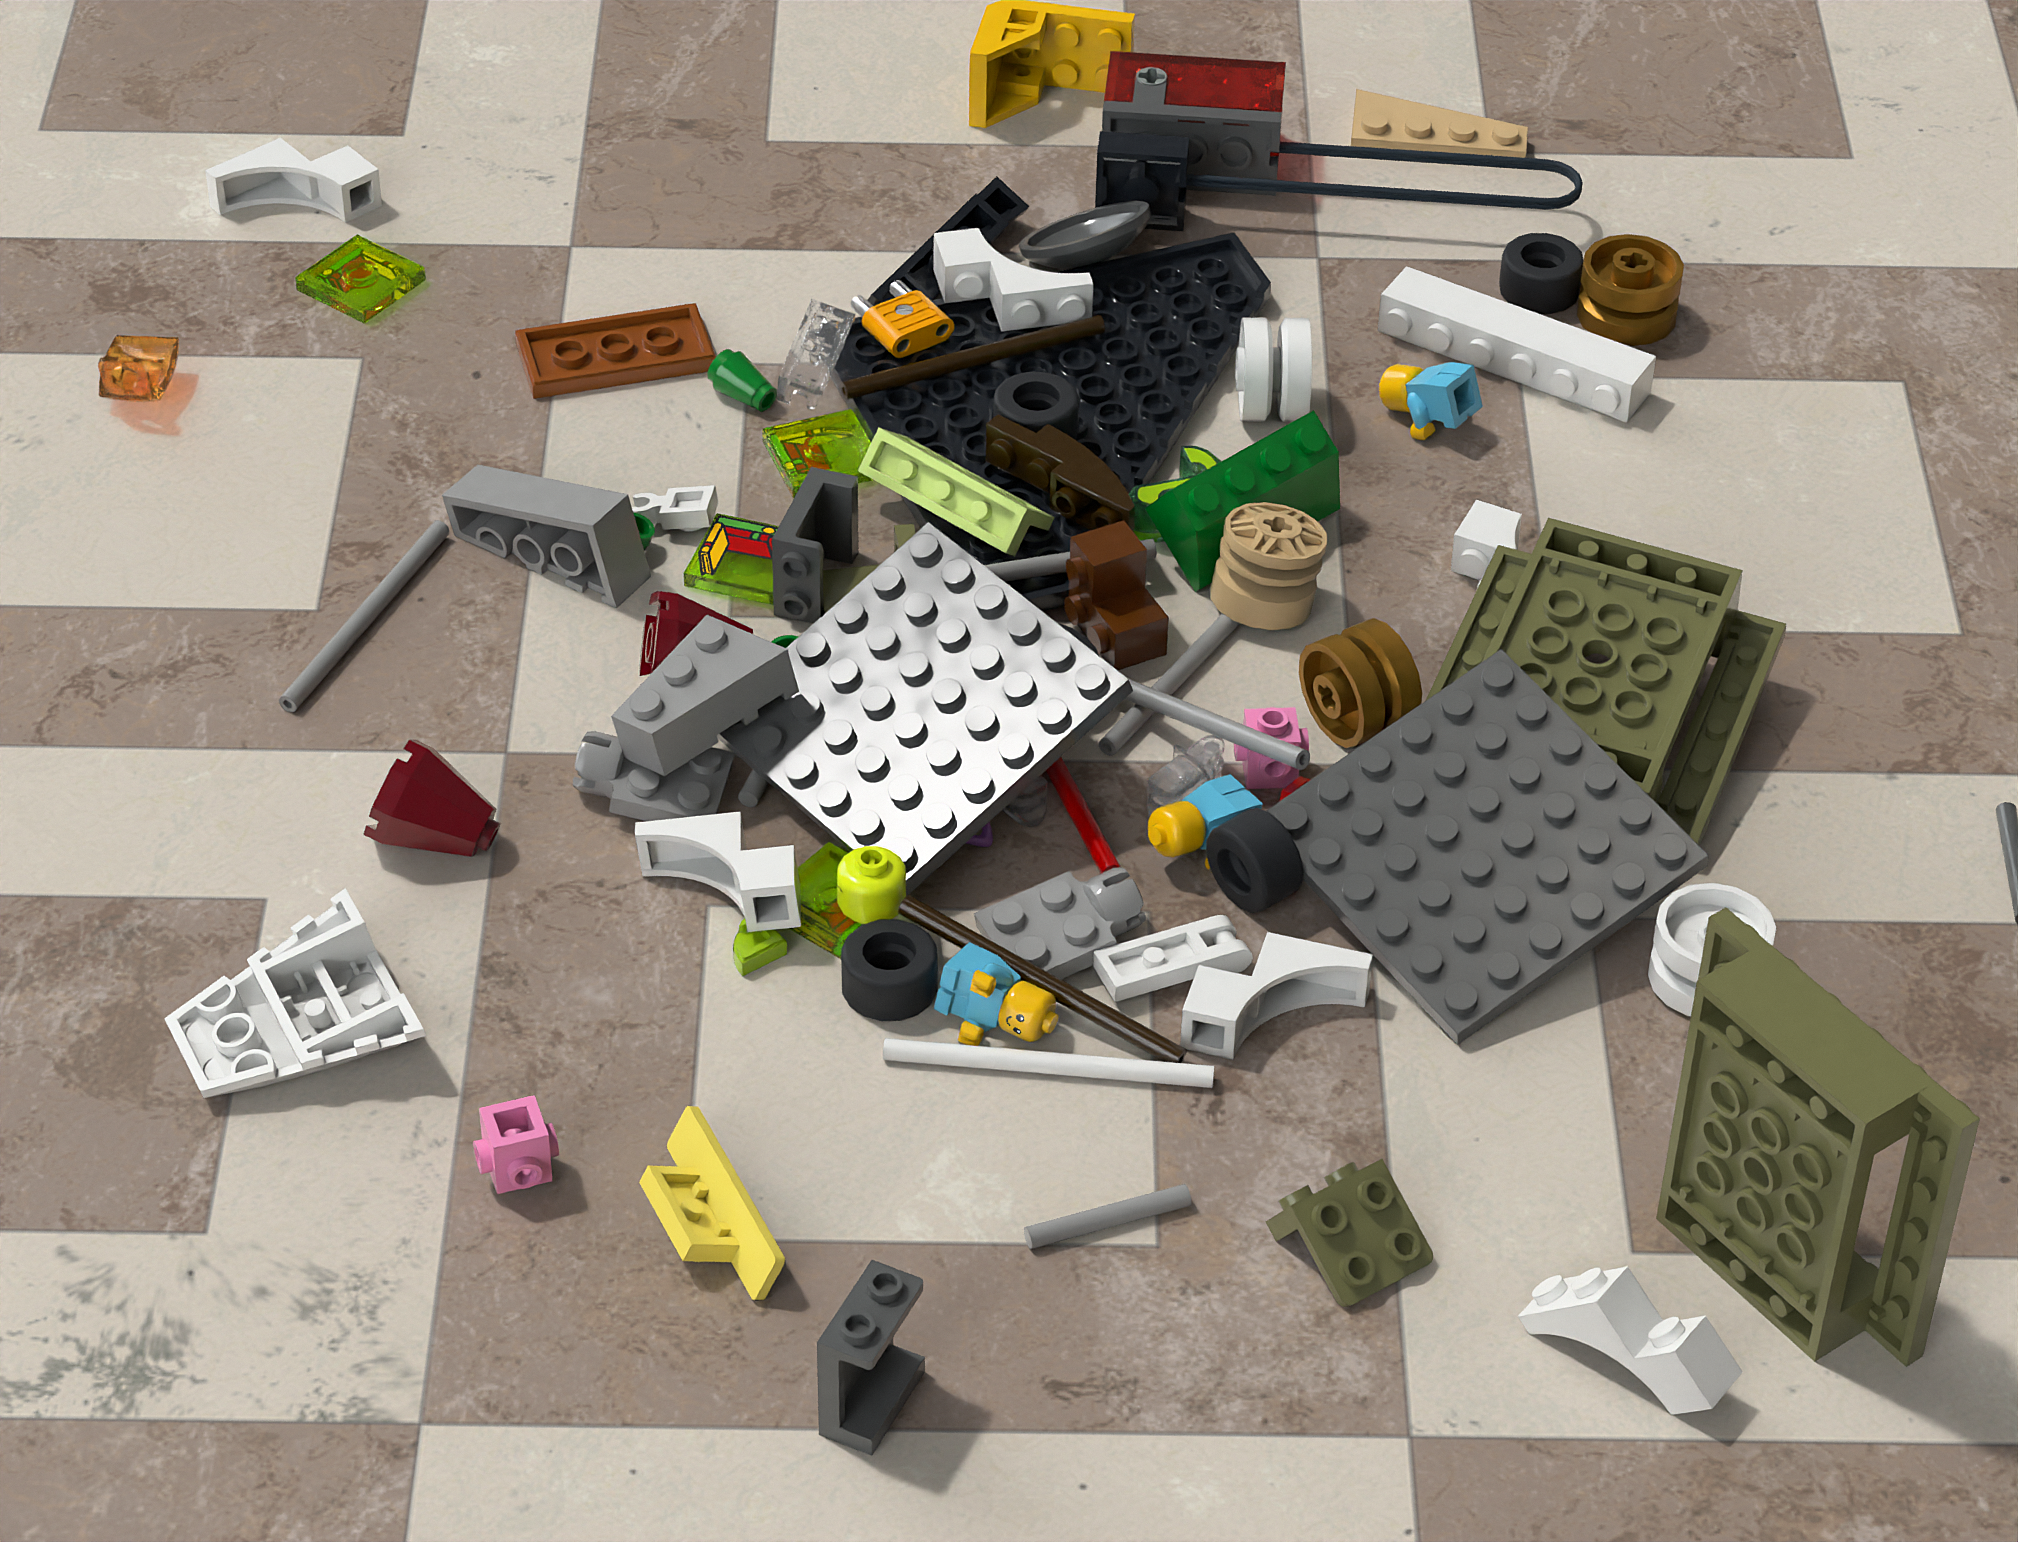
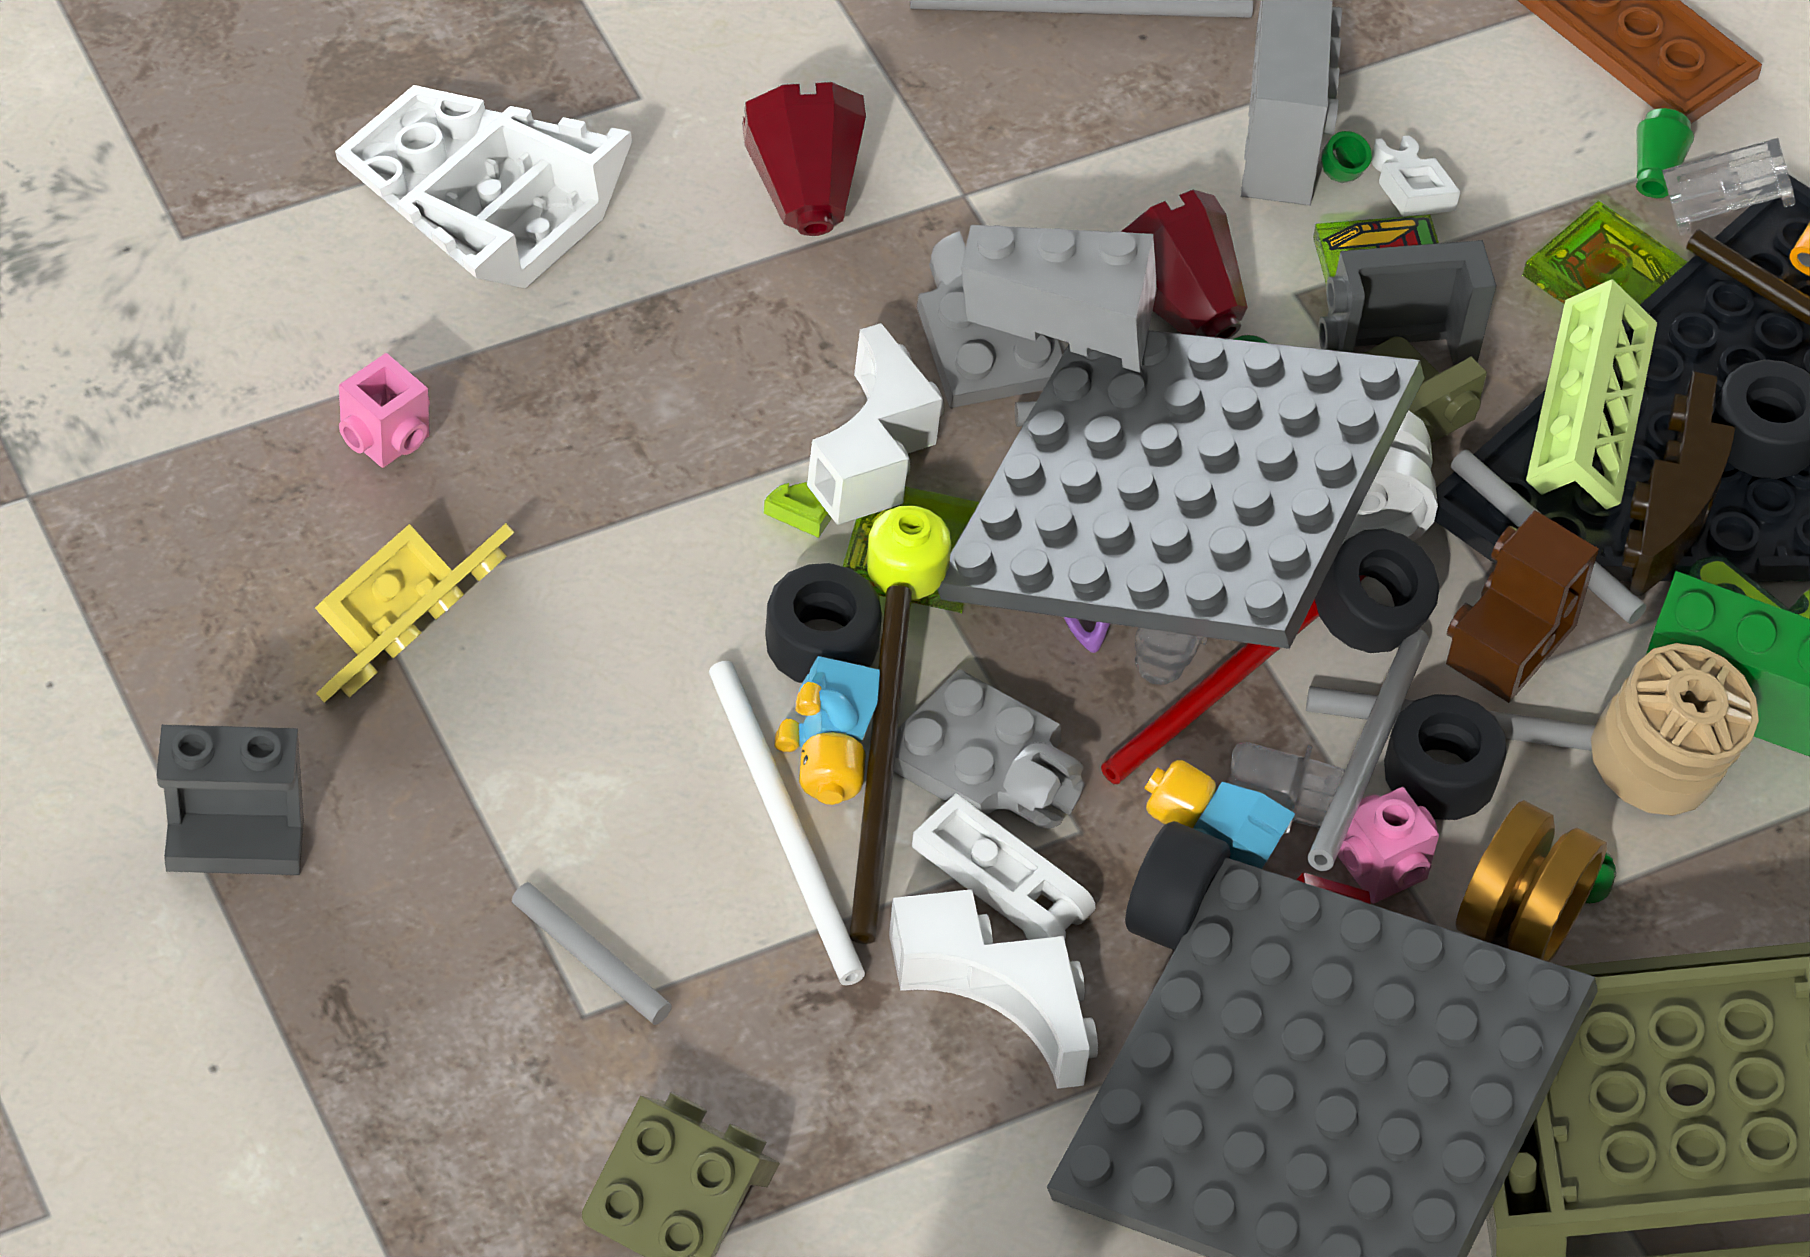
camera: 60 degrees right, 10 degrees up
(1213, 681) = (1452, 726): none -> black tyre

